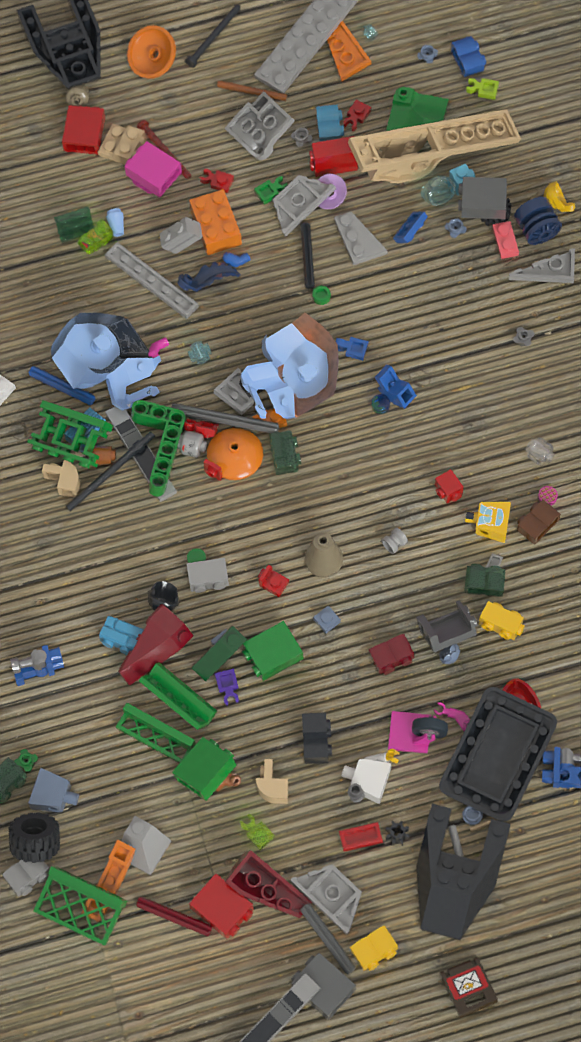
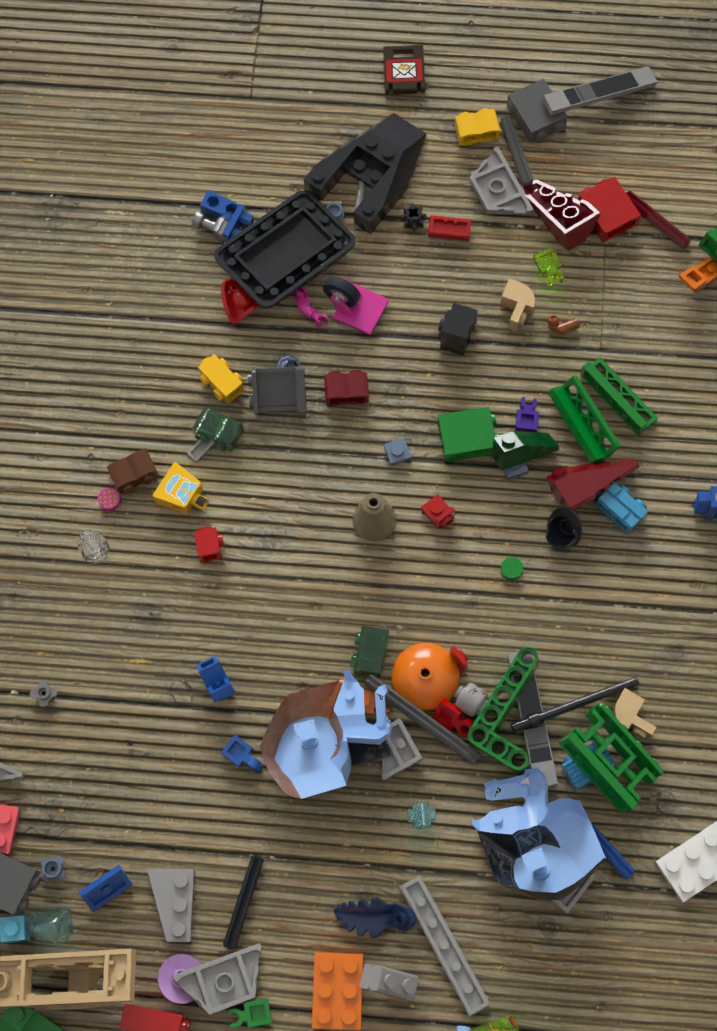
camera: 160 degrees left, 5 degrees up
(106, 455) = (574, 721): dark orange brick -> none
(149, 844) = (665, 293): light grey slope -> none
(156, 346) = (472, 845): dark pink arm -> none
(204, 768) = (581, 338): green brick -> none
(207, 575) = (506, 540): light grey brick -> none
(234, 260) = (332, 929): blue arm -> none
(321, 295) = (248, 841): green tile -> none
(370, 776) = (419, 274): white torso -> none
(380, 403) = (239, 674): tile -> none
(395, 540) = (292, 506): light grey wheel -> none

